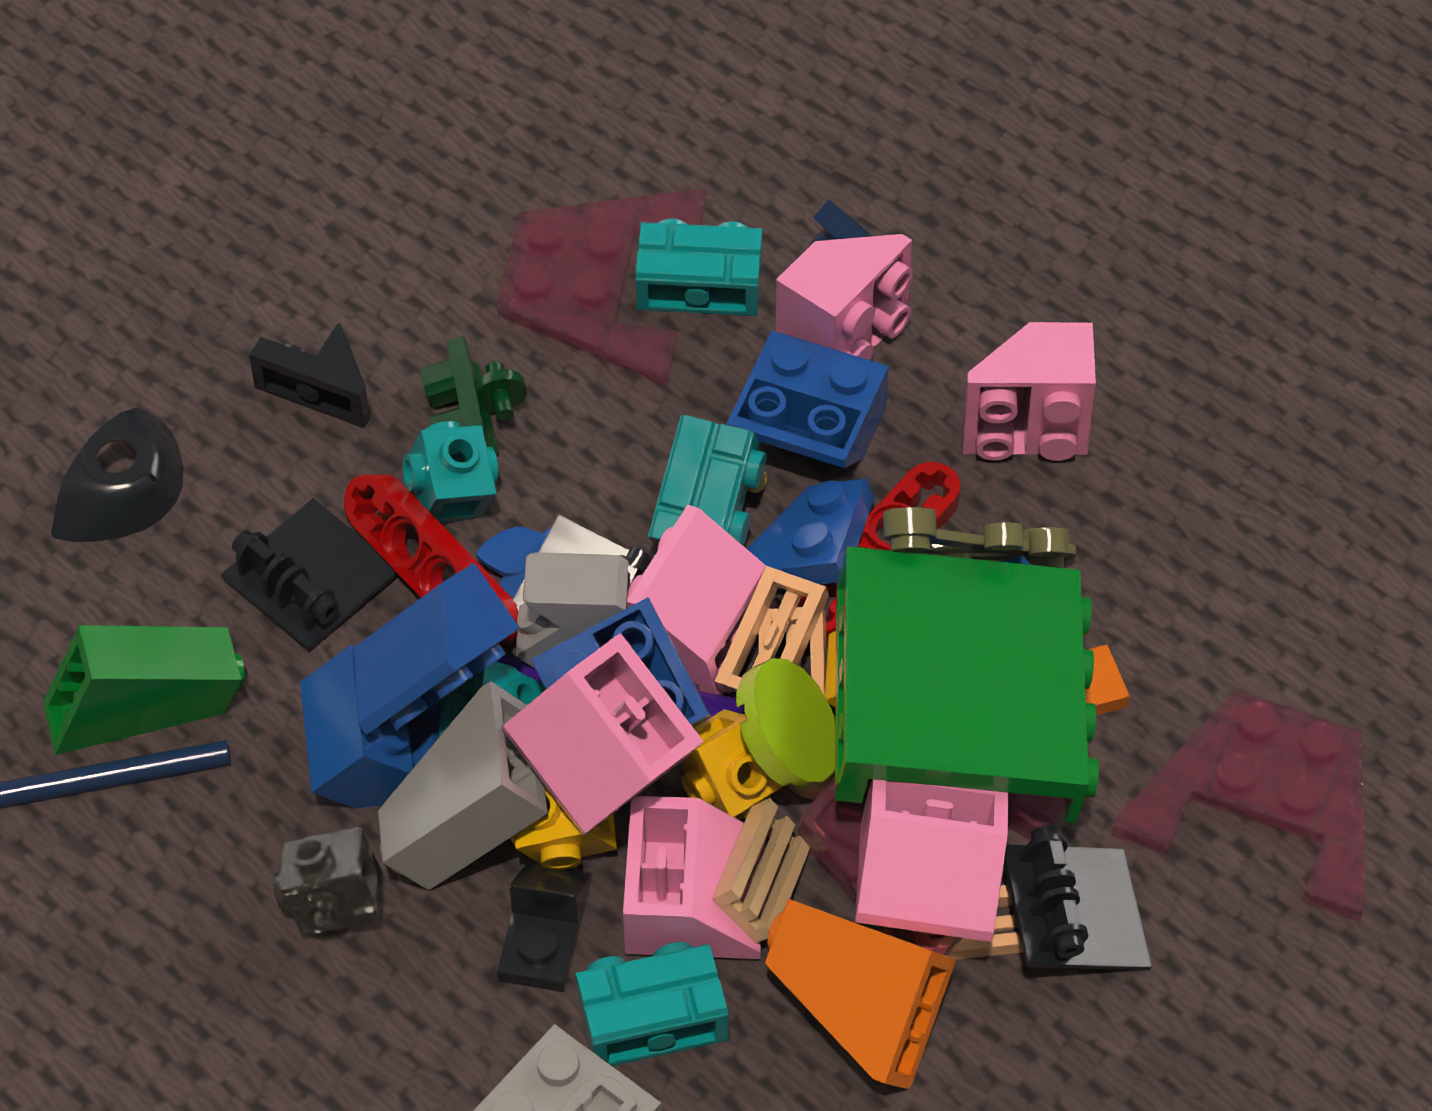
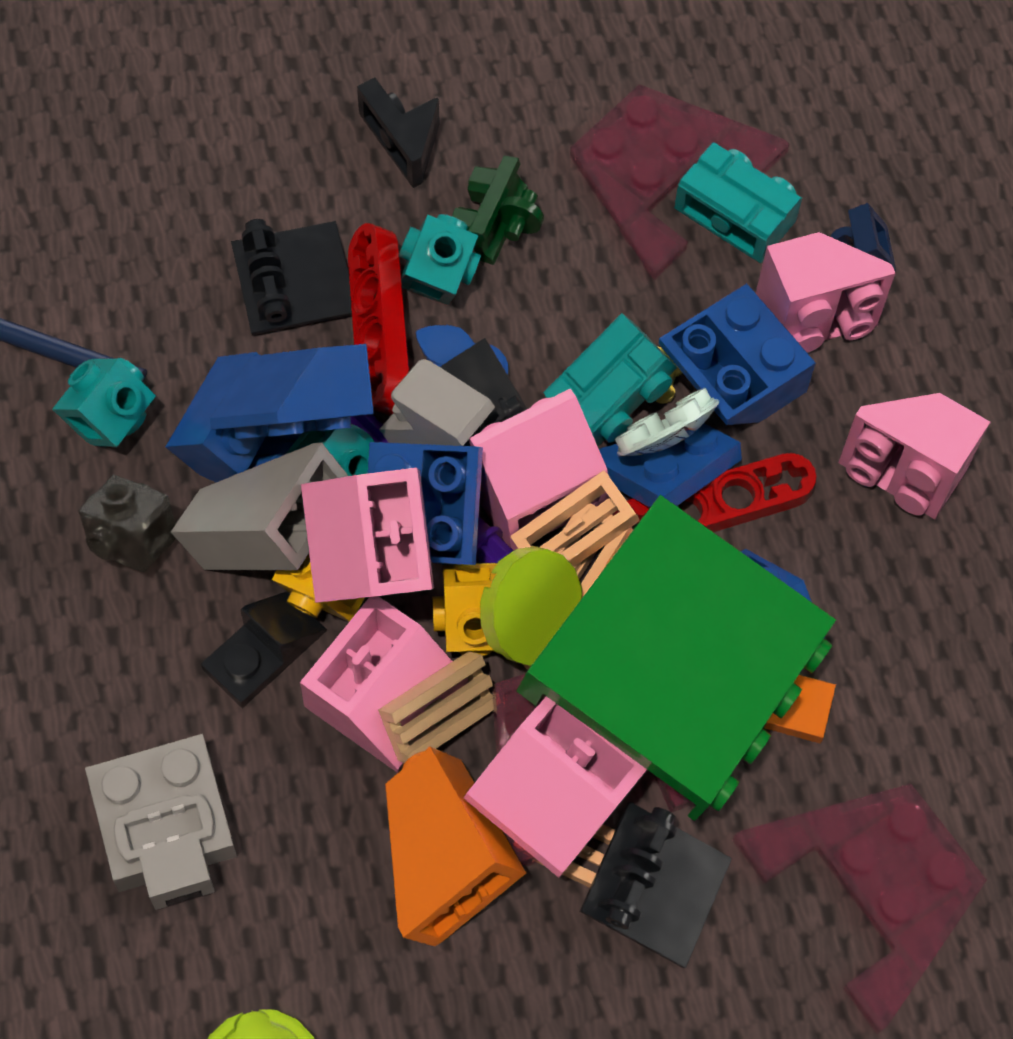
camera: 30 degrees right, 10 degrees up
(110, 505) = (200, 149): black piece -> none
(139, 682) = (112, 291): green slope -> none
(216, 787) = (105, 401): none -> teal brick
(652, 1004) = (287, 760): teal brick -> none
(782, 516) = (655, 435): none -> light aqua dish
(916, 532) = (832, 577): olive plant -> none

